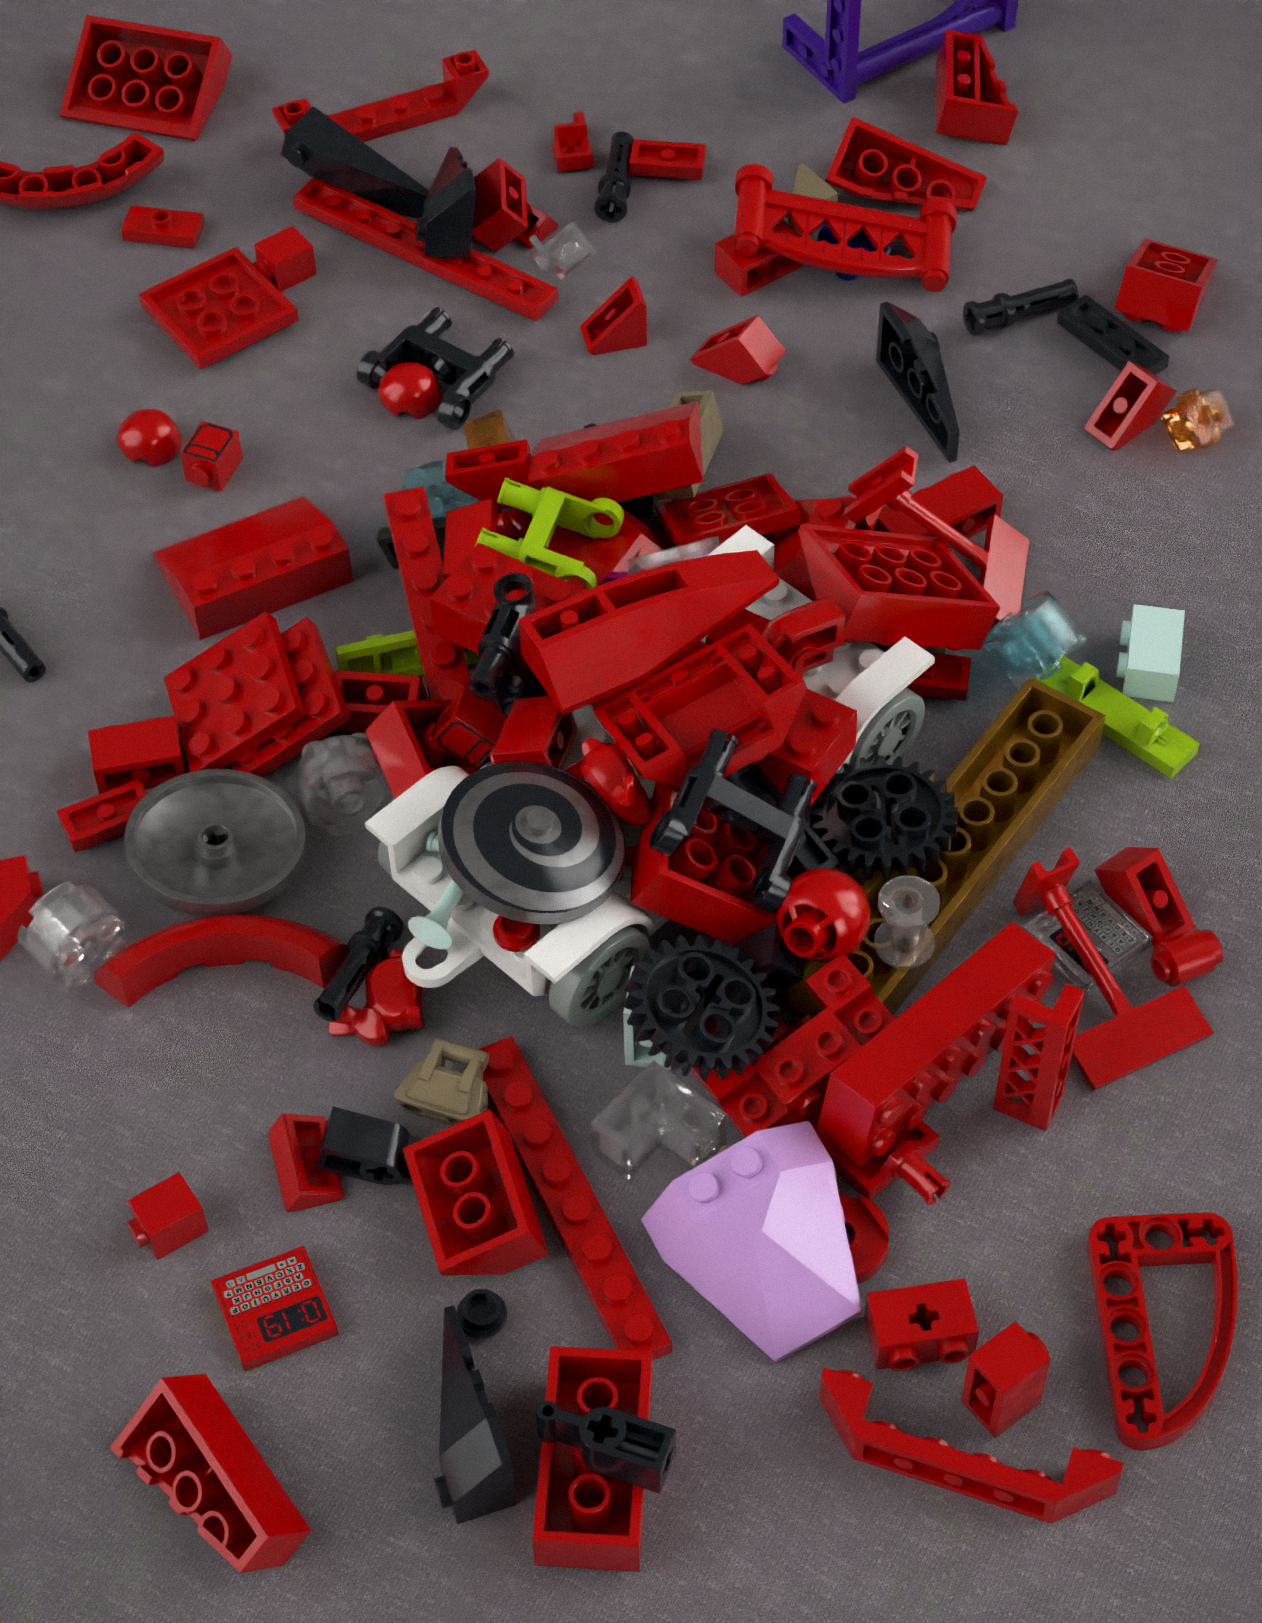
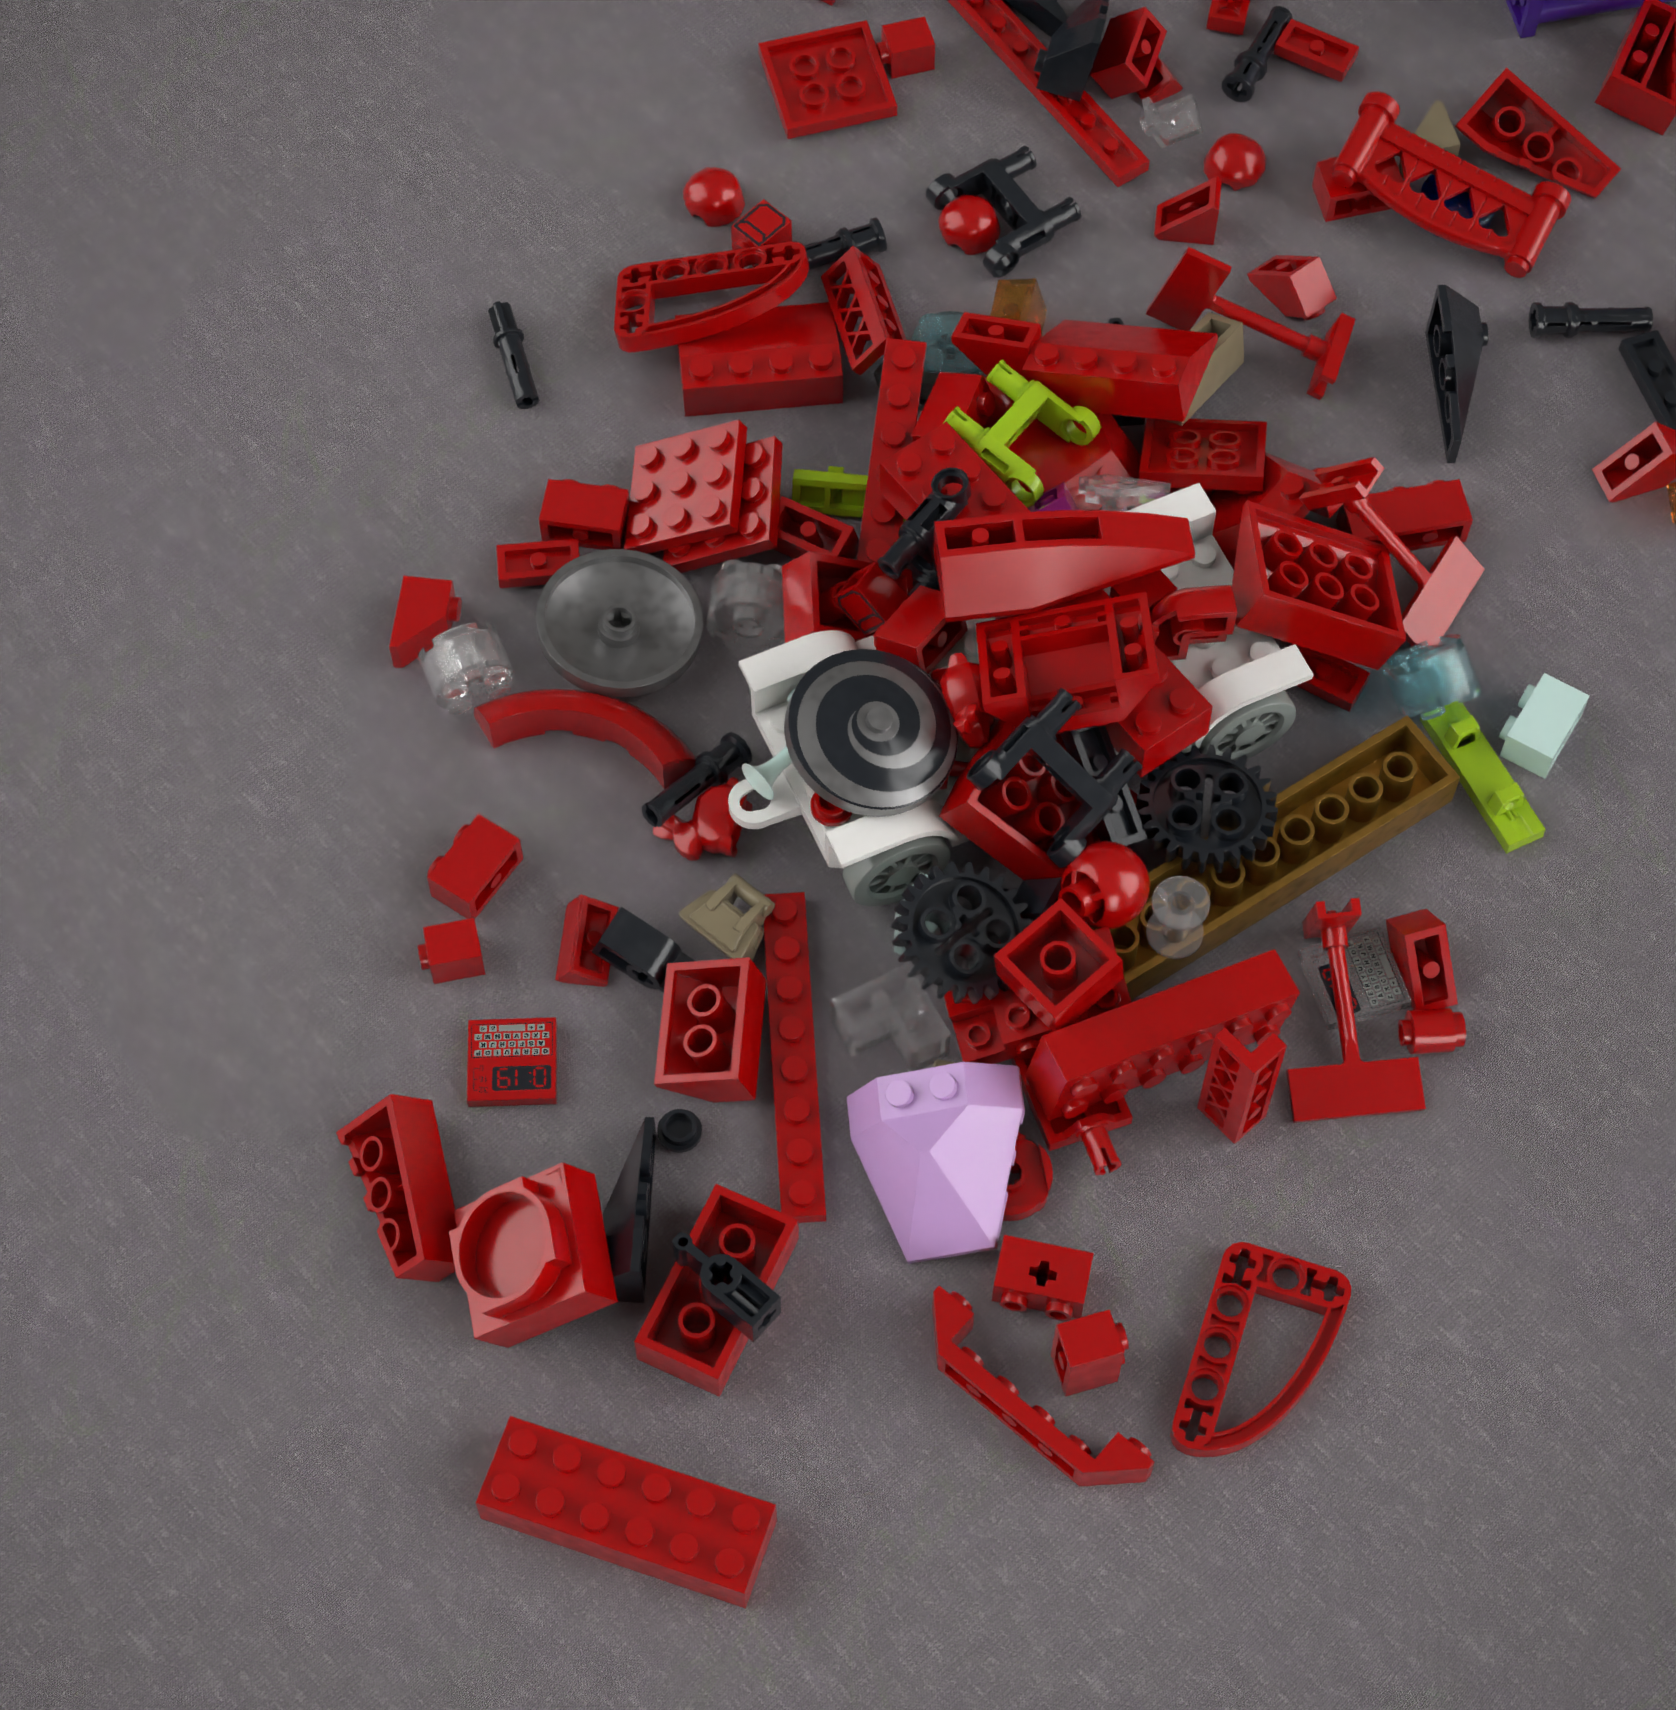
camera: 20 degrees right, 10 degrees up
(156, 1125) = (474, 866): none -> red brick
(242, 476) = (780, 267): none -> red beam
(295, 443) = (865, 238): none -> black pin
(343, 478) = (870, 301): none -> red fence
(385, 1491) = (533, 1255): none -> red container
(638, 261) = (1235, 161): none -> red hair
(655, 373) = (1193, 289): none -> red piece
(817, 1001) = (1059, 966): none -> red brick

